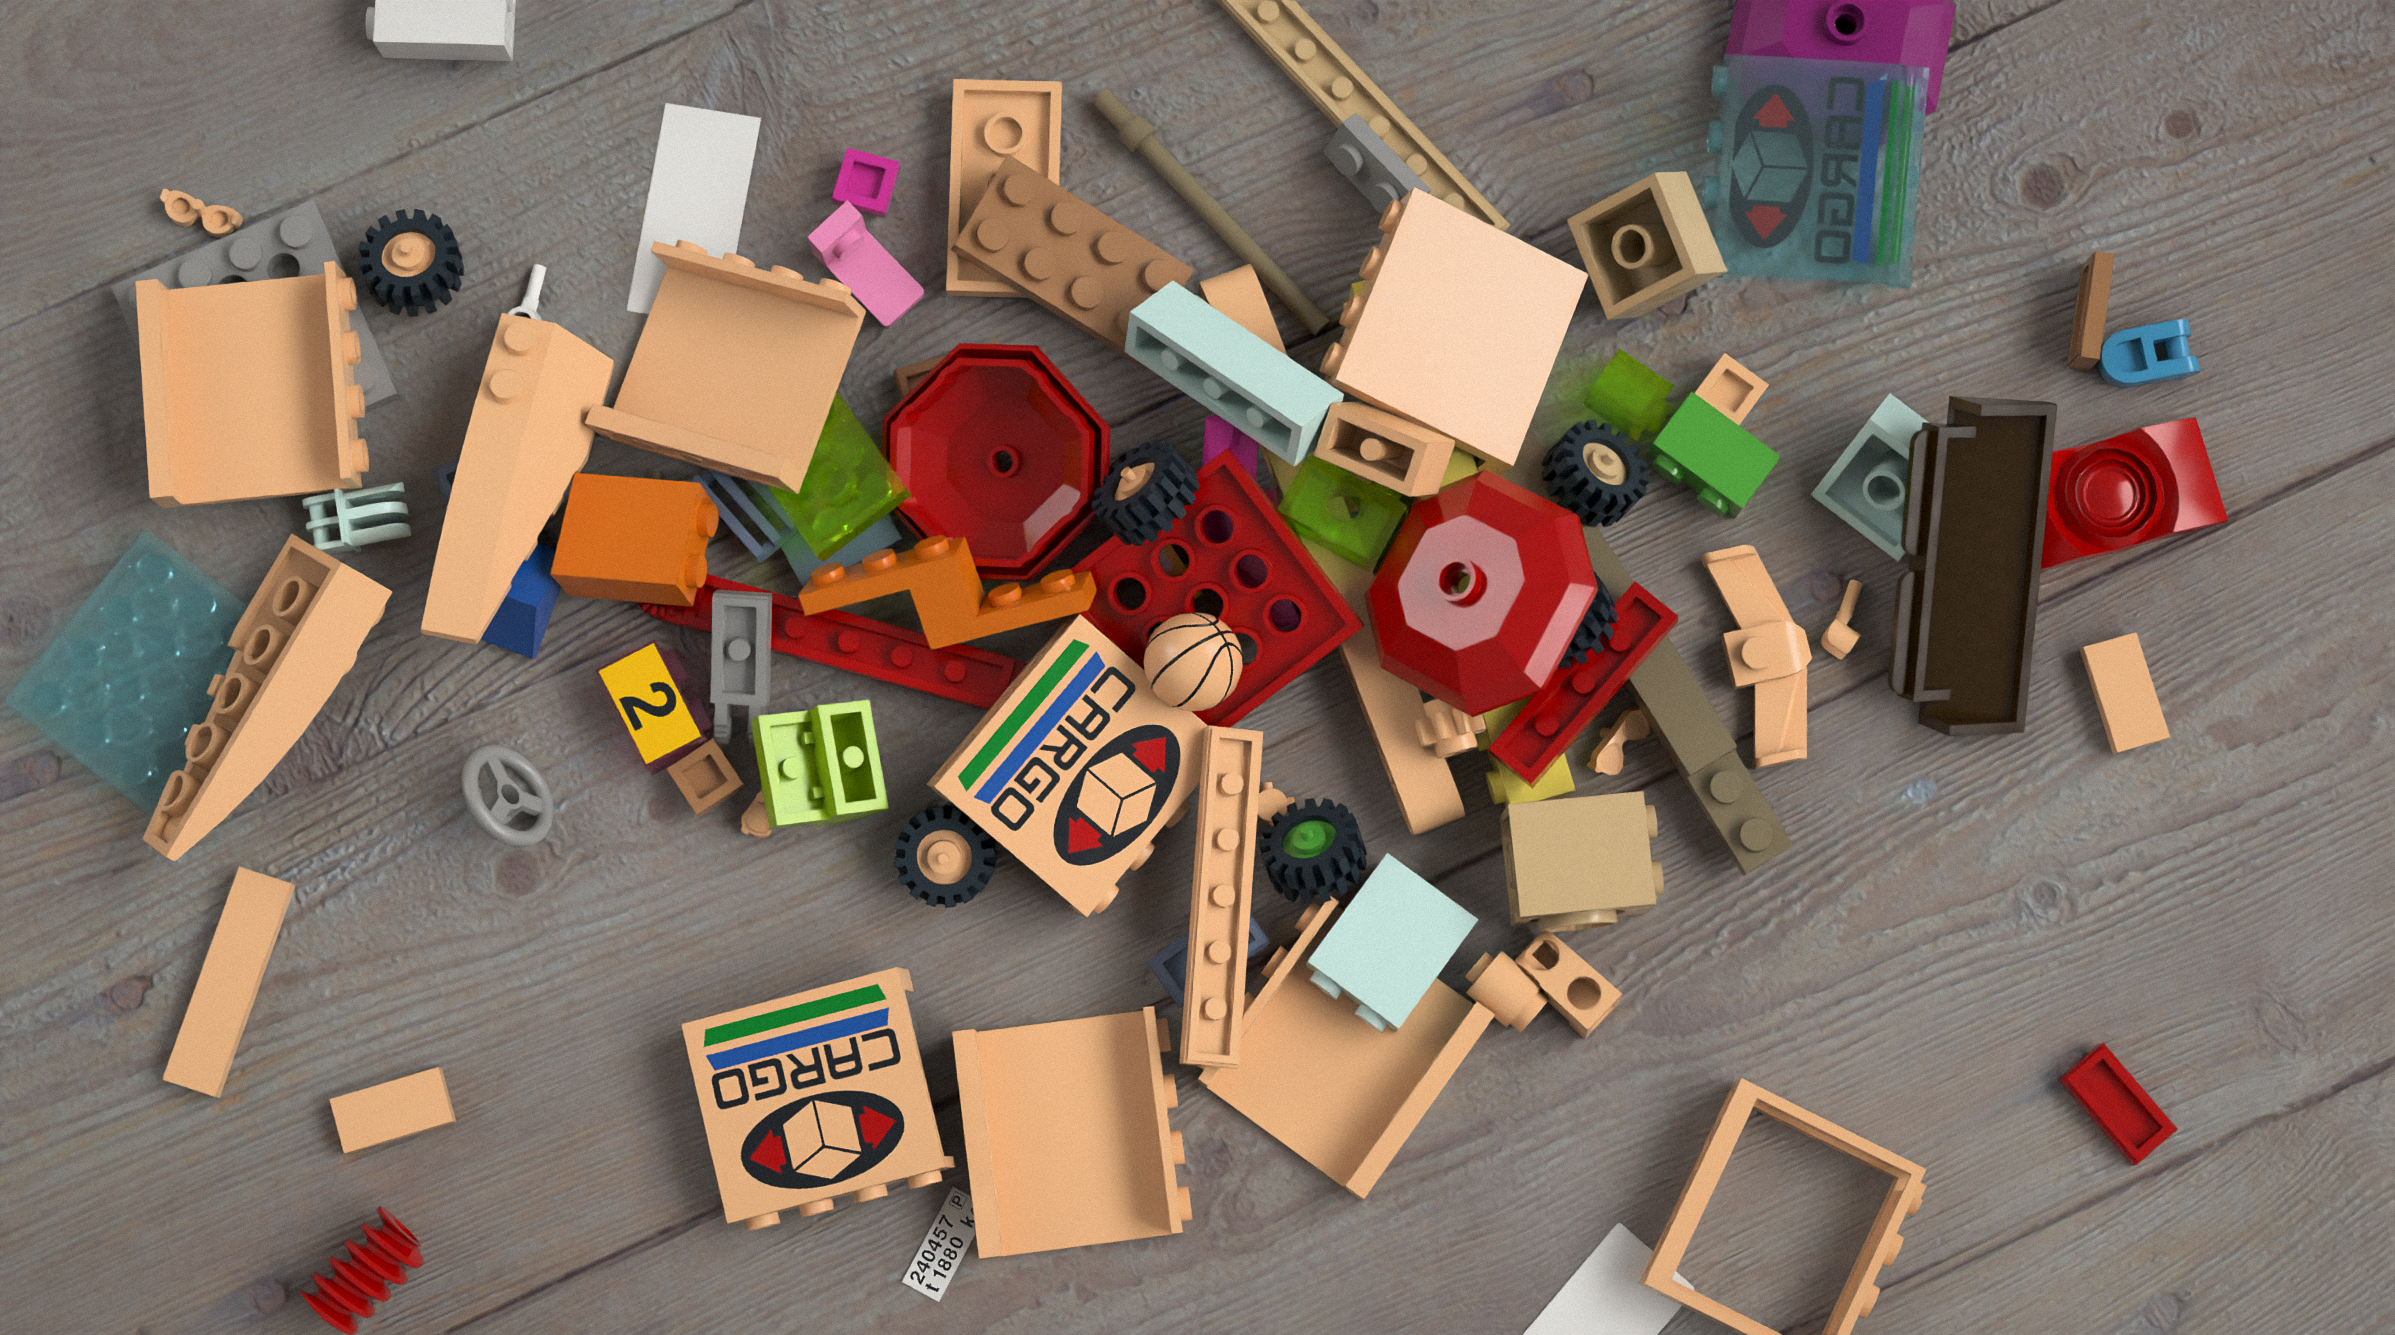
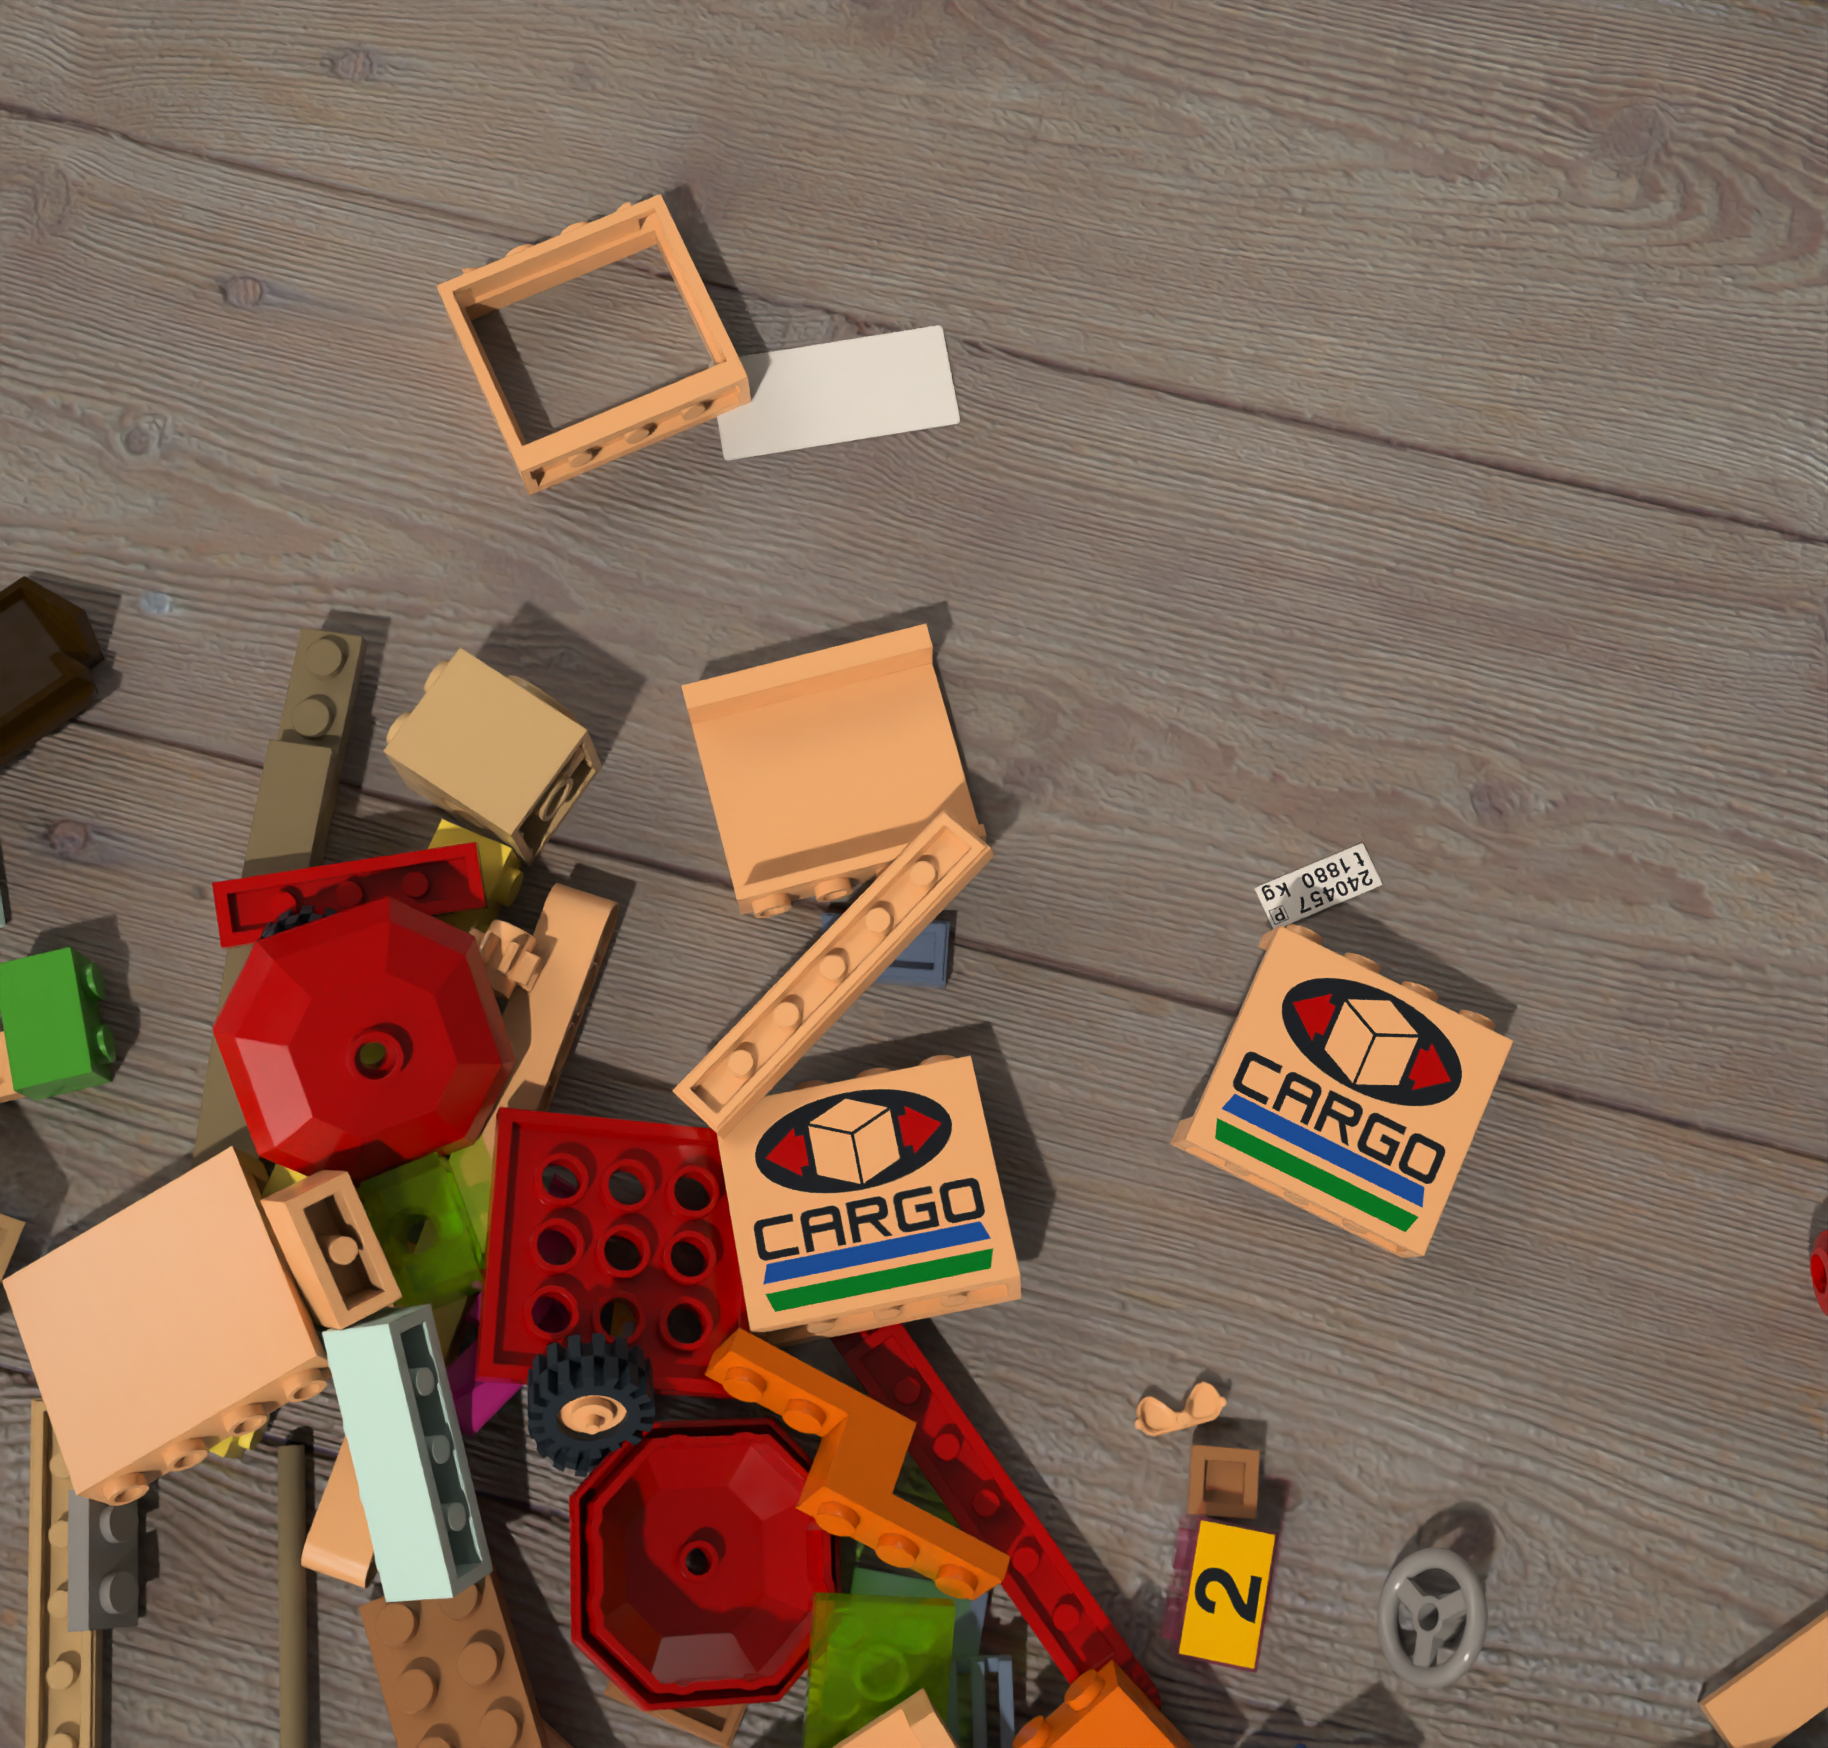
camera: 140 degrees left, 5 degrees down
(392, 1110) = (1751, 1402): light nougat tile -> none
(740, 657) = (1104, 1567): light grey hinge -> none
(819, 765) = (1107, 1402): lime brick -> none
(944, 856) = (1058, 1221): black wheel -> none
(1070, 1133) = (1131, 891): light nougat panel -> none
(1193, 661) = (682, 1198): light nougat piece -> none
(1271, 802) = (715, 1028): light nougat piece -> none
(1313, 851) = (717, 954): black wheel -> none
(1389, 944) = (720, 820): light aqua brick -> none
(1505, 990) = (653, 707): light nougat brick -> none
(1569, 983) = (595, 670): light nougat leg -> none
(1595, 473) = (168, 1088): black wheel -> none
(1609, 754) = (385, 839): light nougat piece -> none
(1630, 396) = (73, 1140): clear neon green brick -> none
(1764, 654) = (176, 816): light nougat plate -> none
(1839, 637) = (99, 782): light nougat hand -> none
(2117, 1104) = (238, 234): red tile -> none

